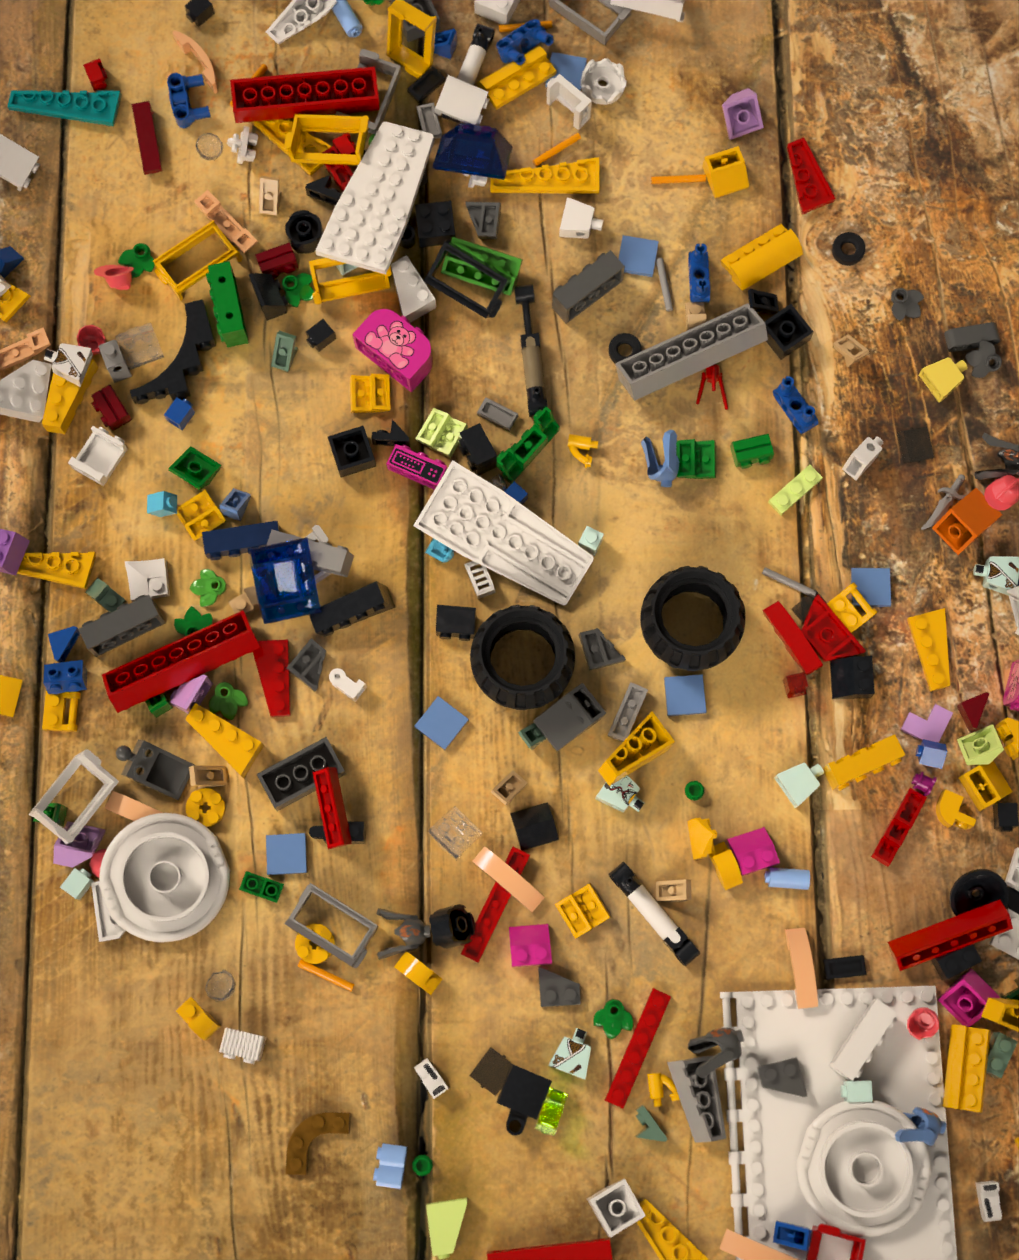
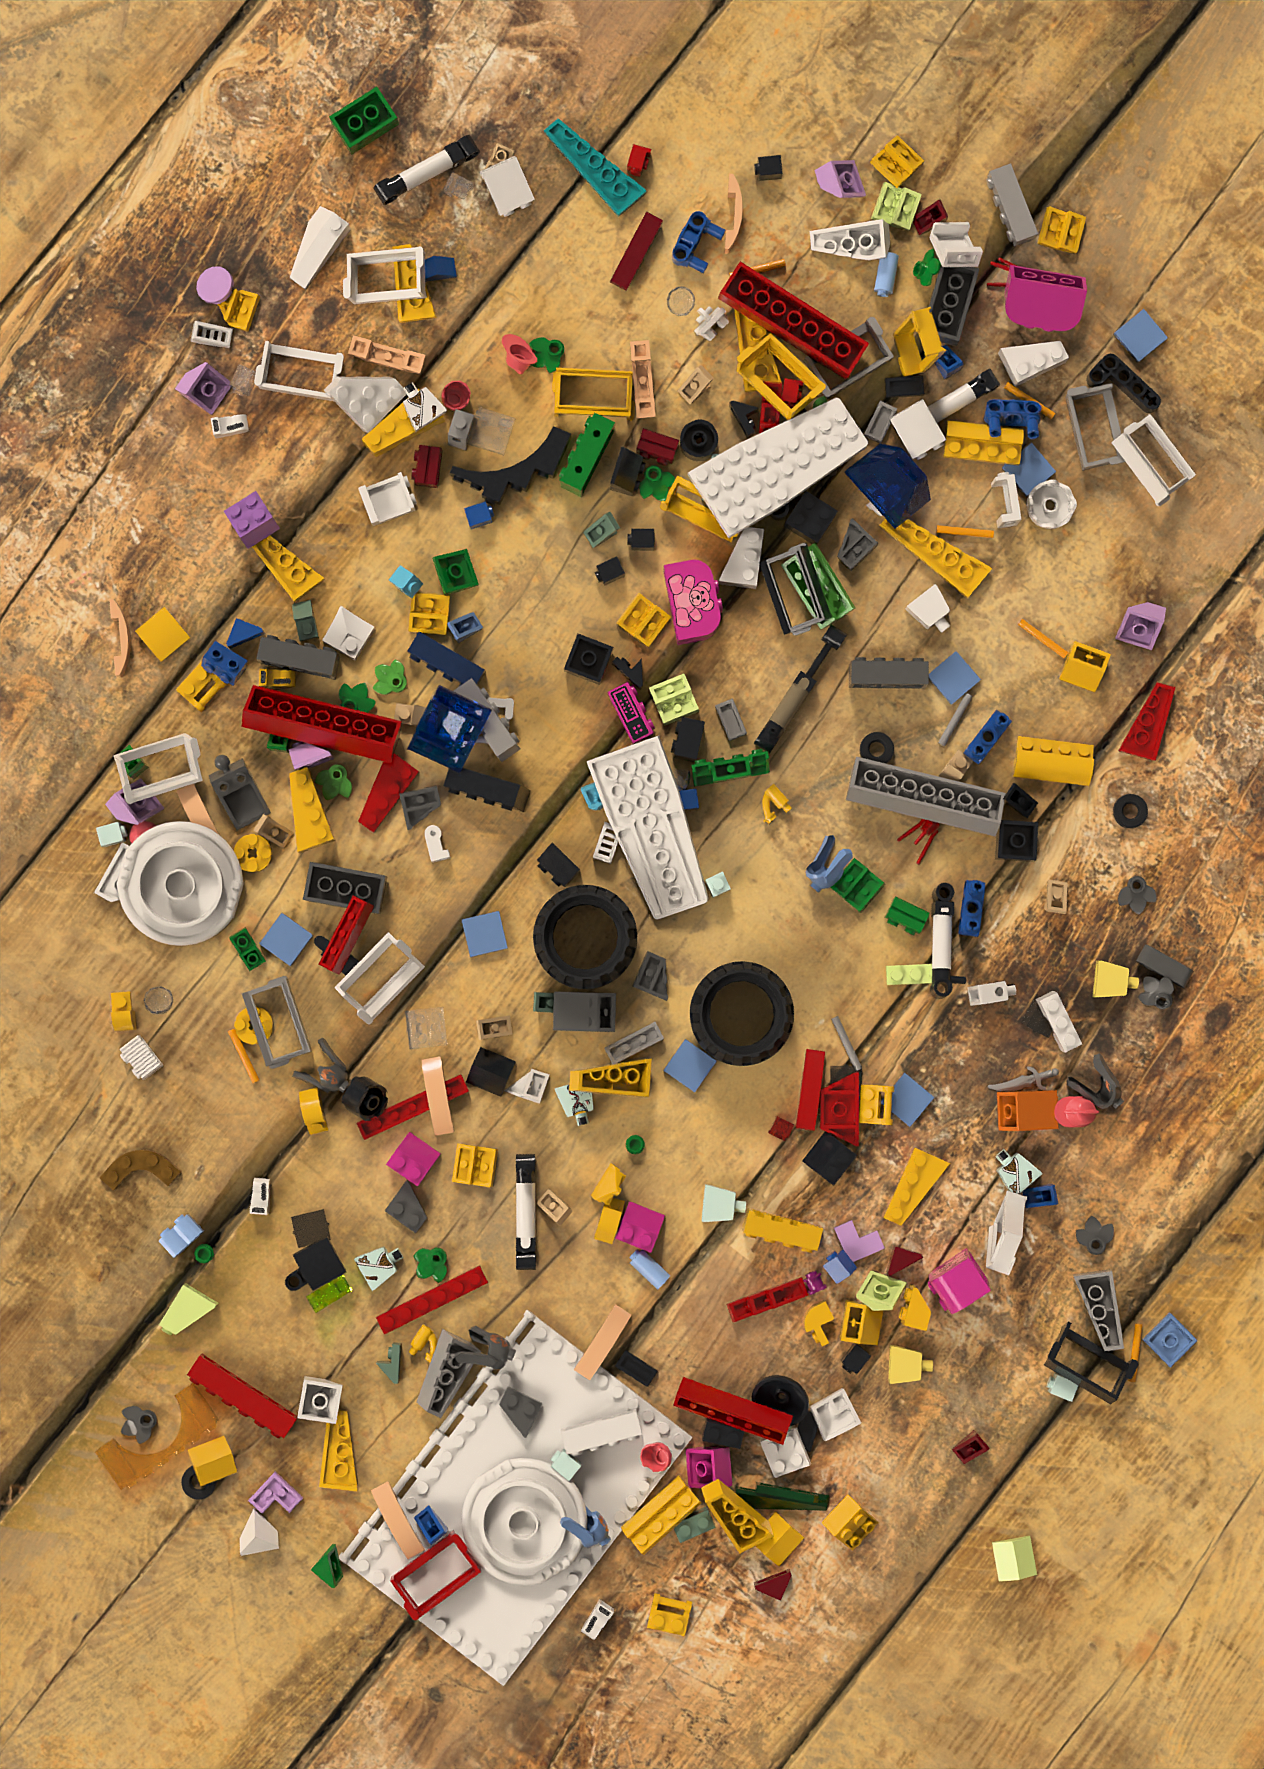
camera: 35 degrees right, 10 degrees up
(118, 656) = (276, 678): none -> yellow leg
(314, 376) = (609, 571): none -> black brick
(402, 823) = (390, 989): none -> white piece
(575, 812) = (530, 1086): none -> white slope
(776, 426) = (942, 914): none -> piece
(921, 430) = (1059, 1020): none -> white arch

